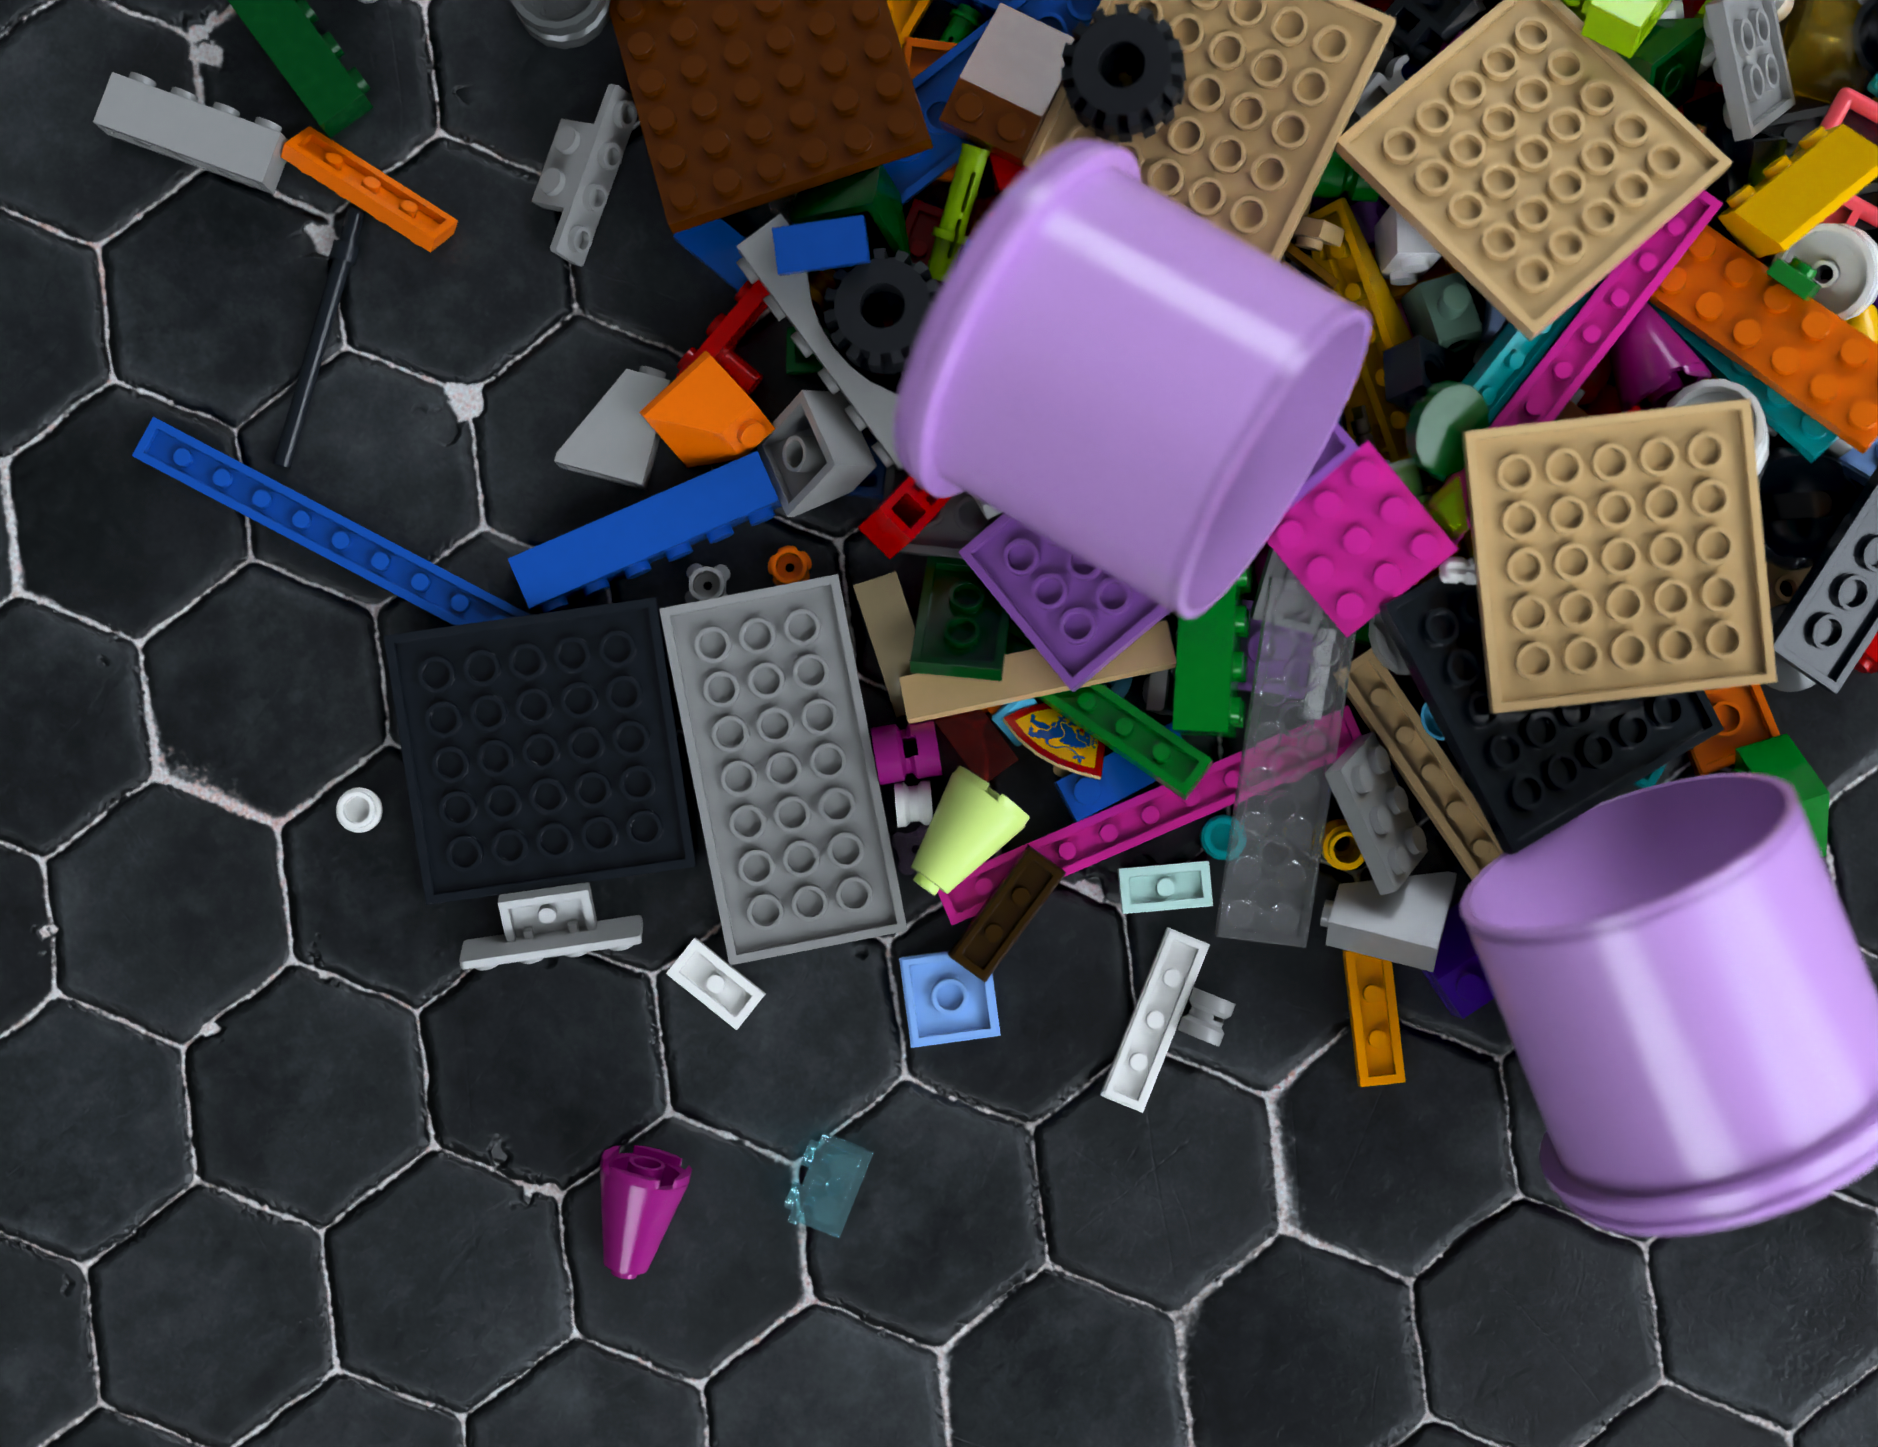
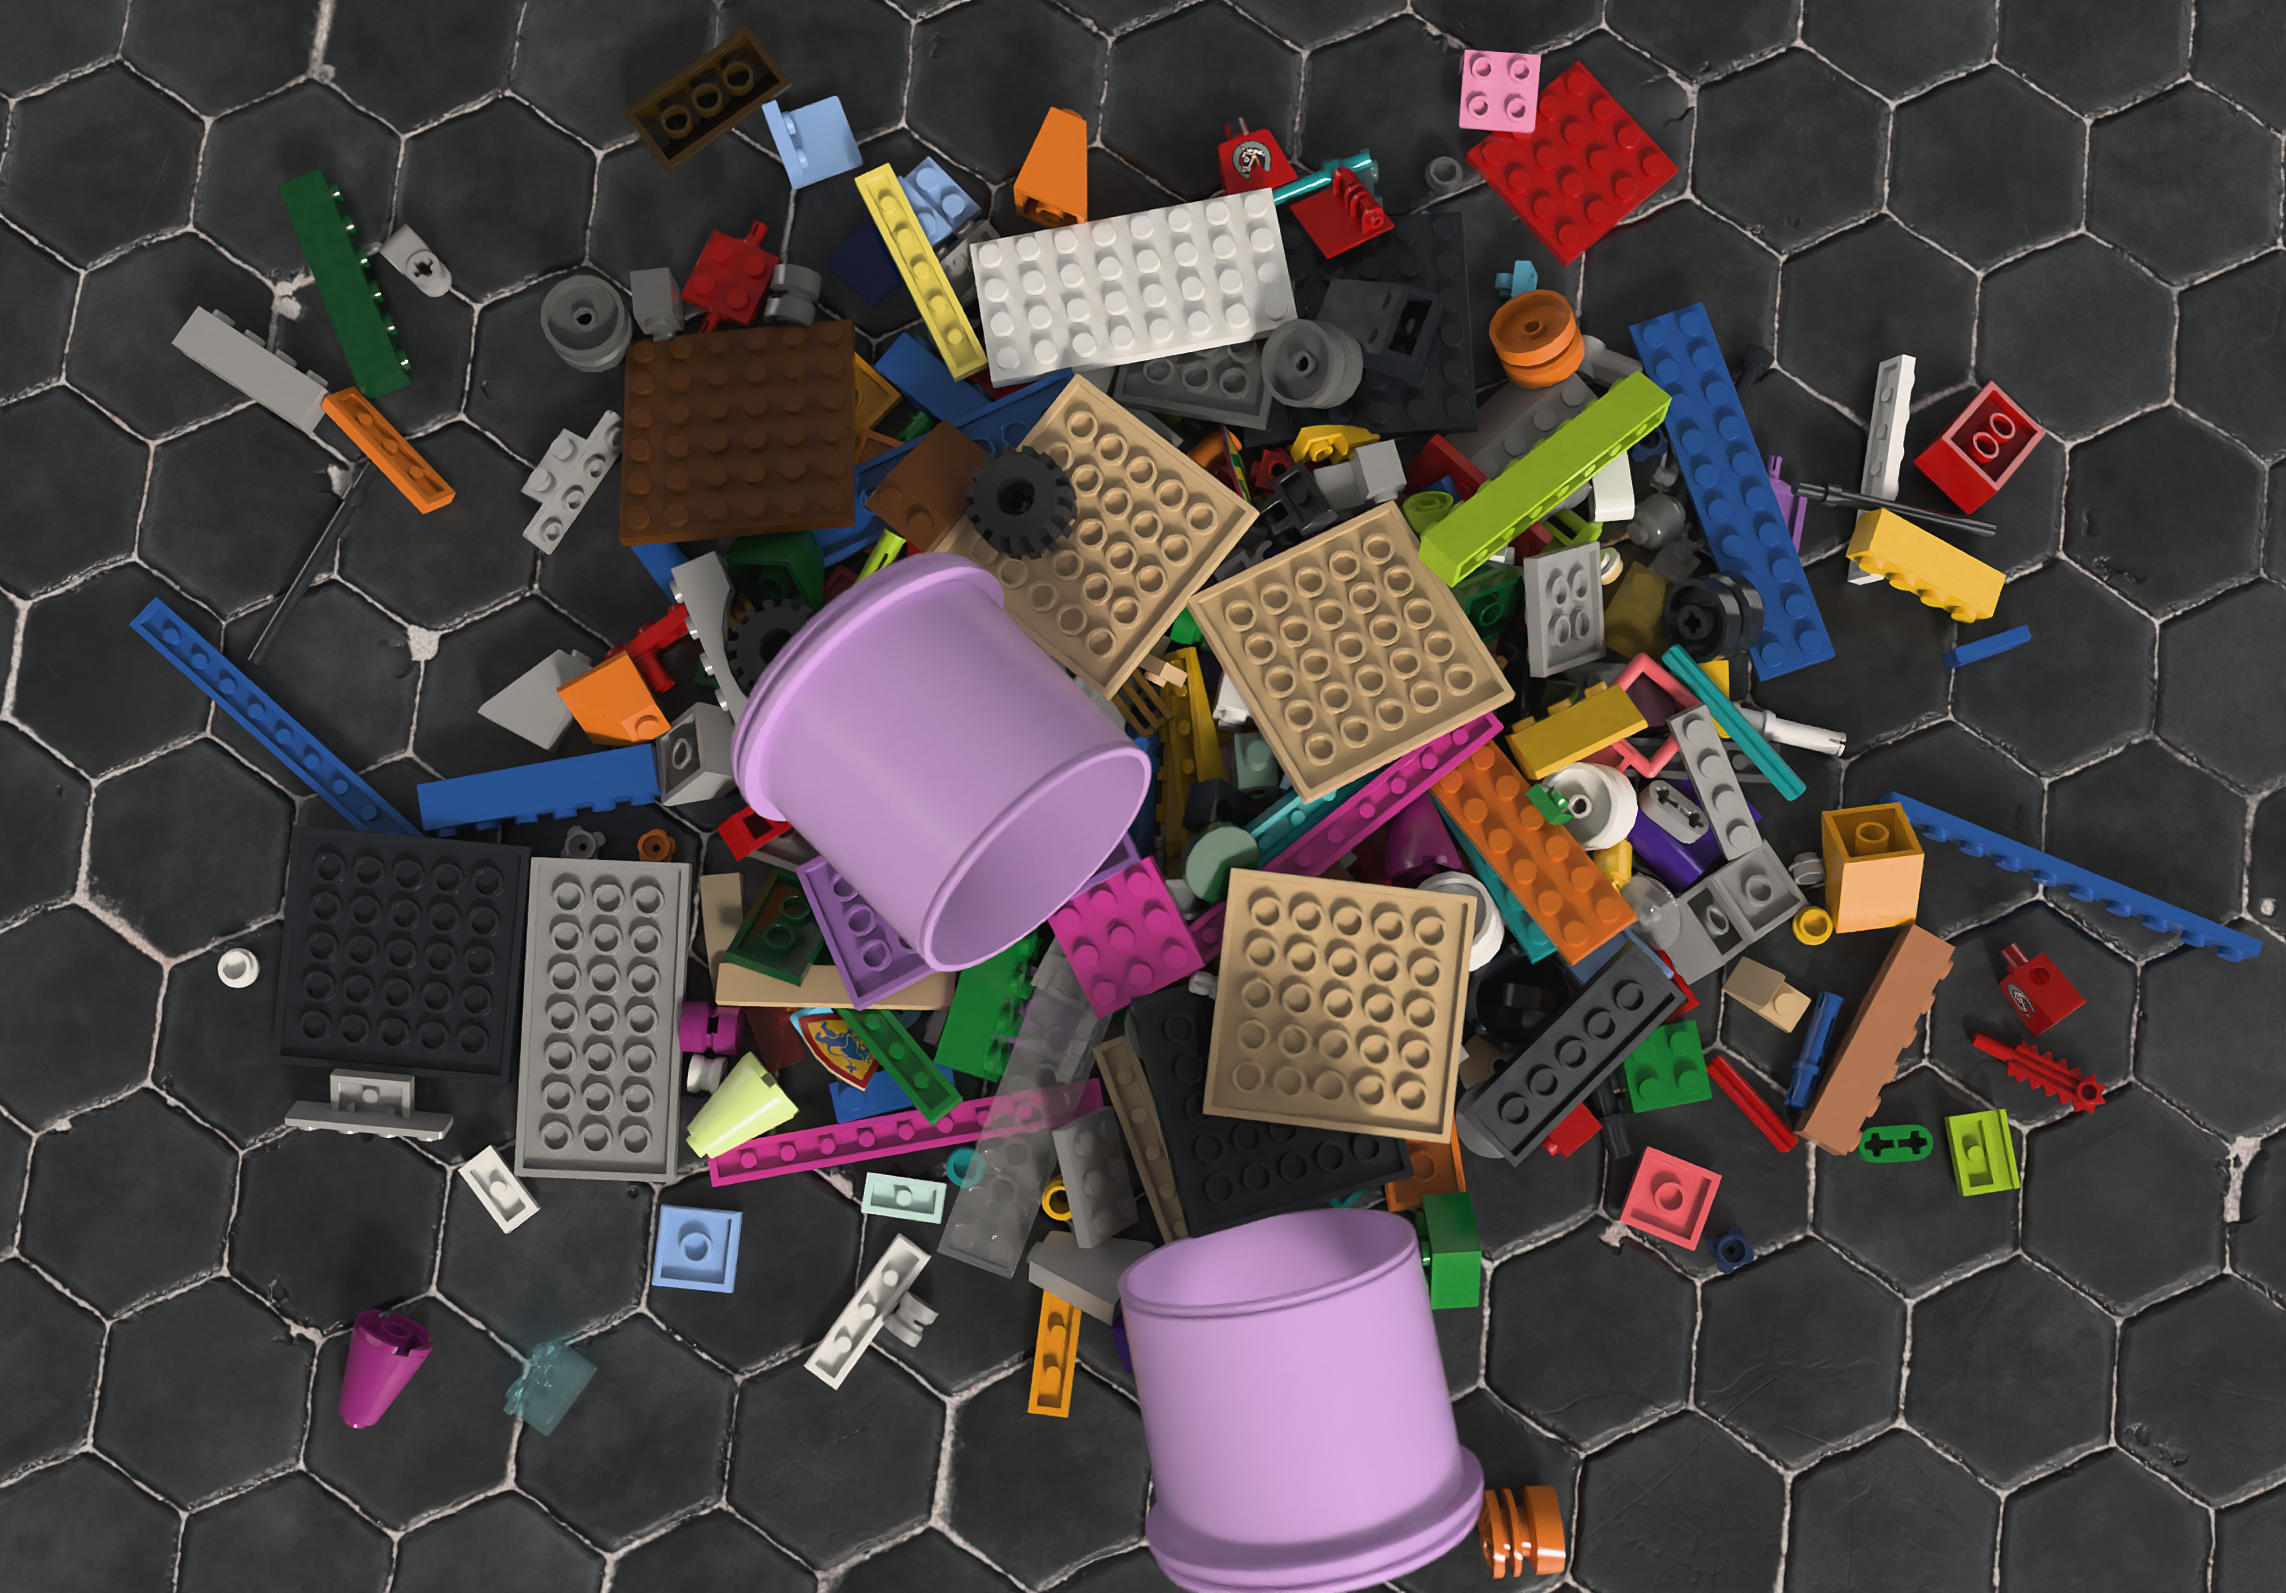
camera: 15 degrees right, 5 degrees down
(821, 245) = (739, 585): blue tile -> none
(1006, 913) = (760, 1187): dark brown tile -> none
(1449, 509) = (1203, 928): clear neon green slope -> none

